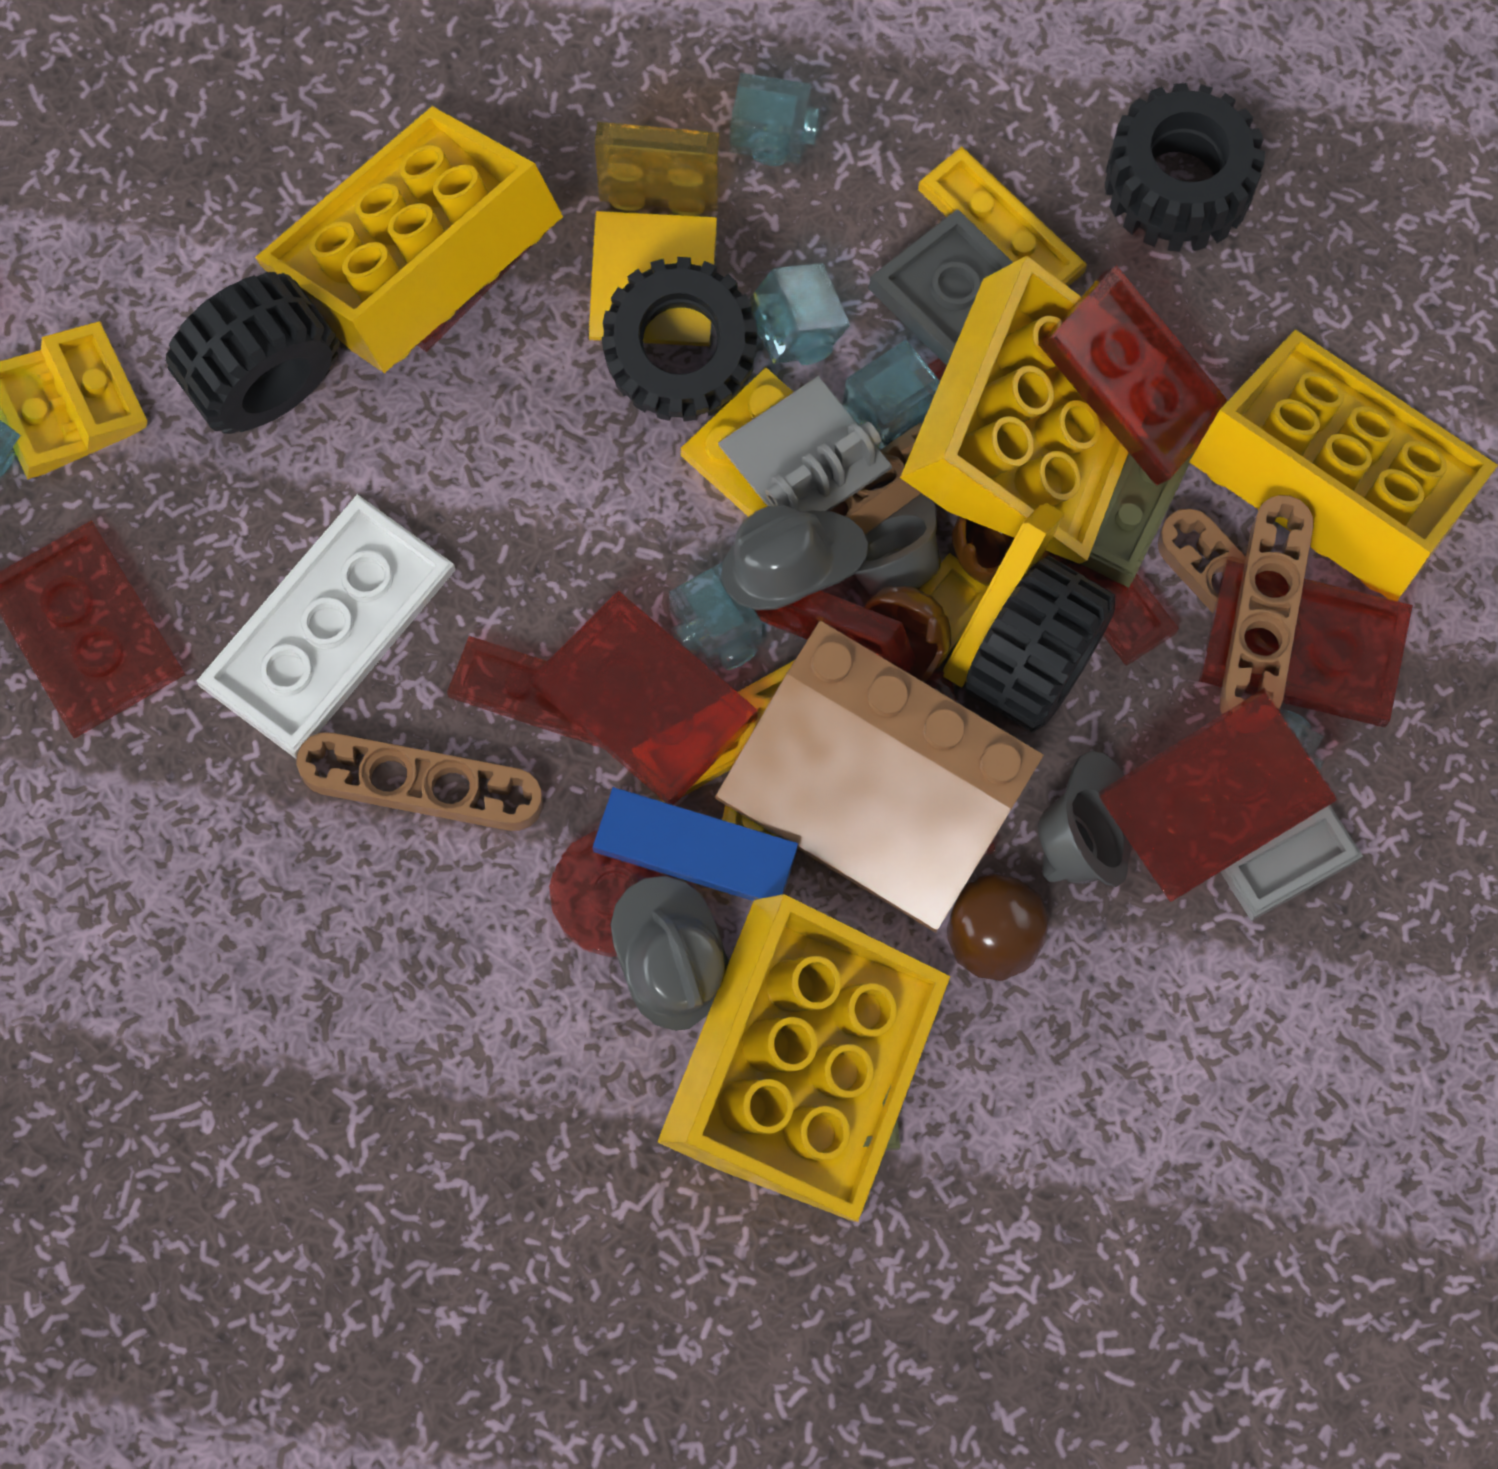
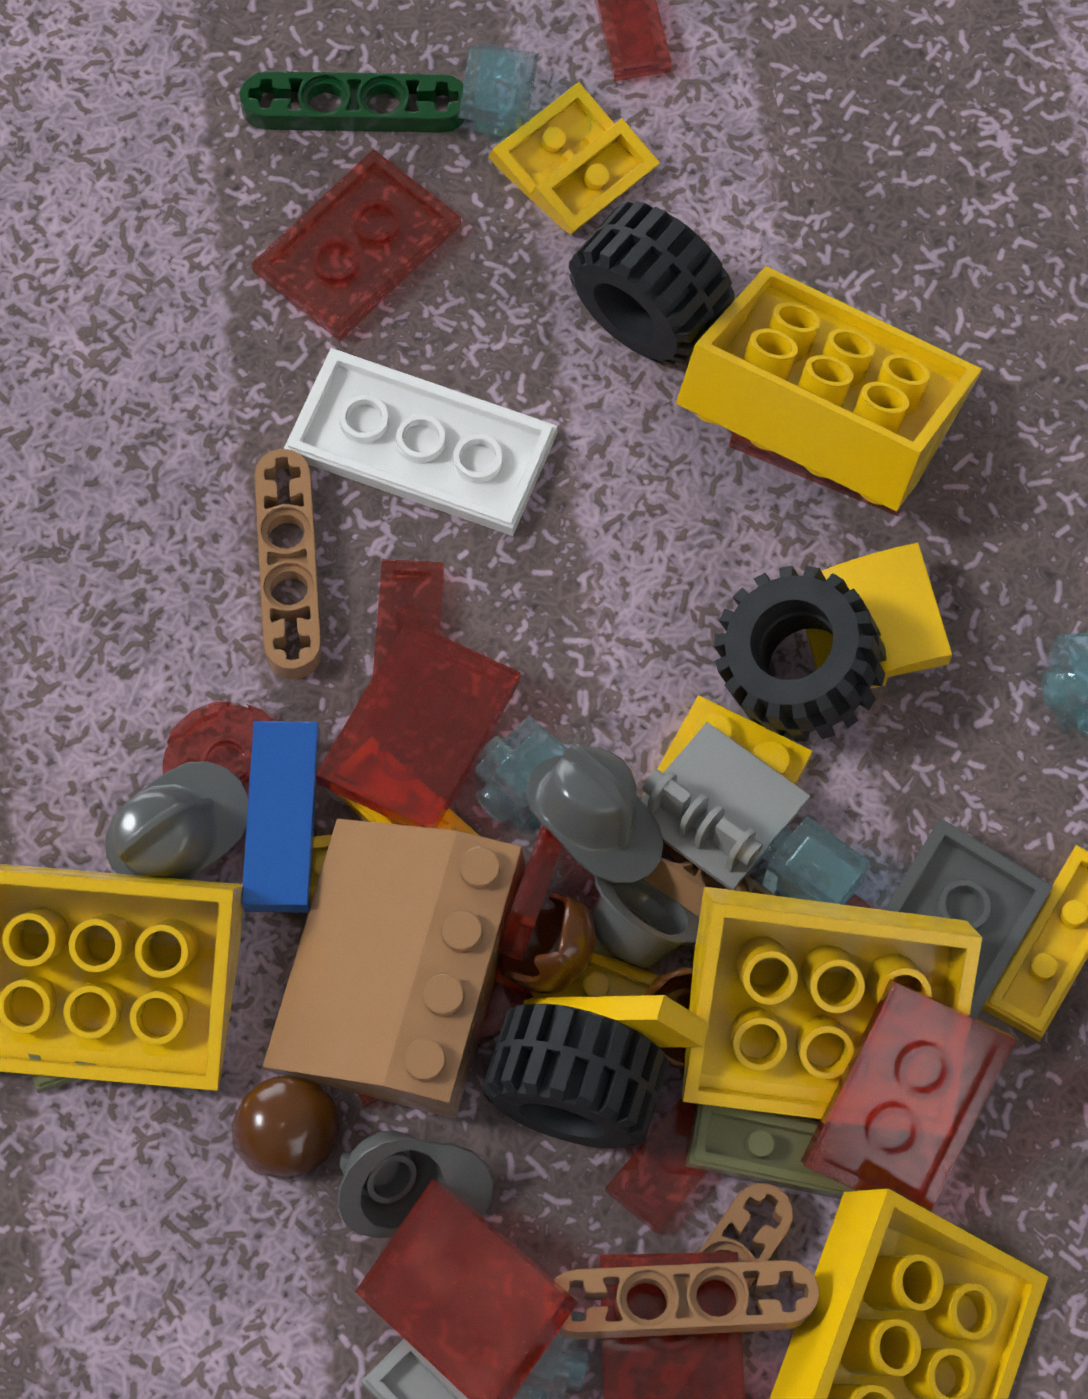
camera: 75 degrees right, 5 degrees down
(658, 167) = (981, 580): clear yellow plate -> none
(798, 314) = (873, 760): clear light blue brick -> none

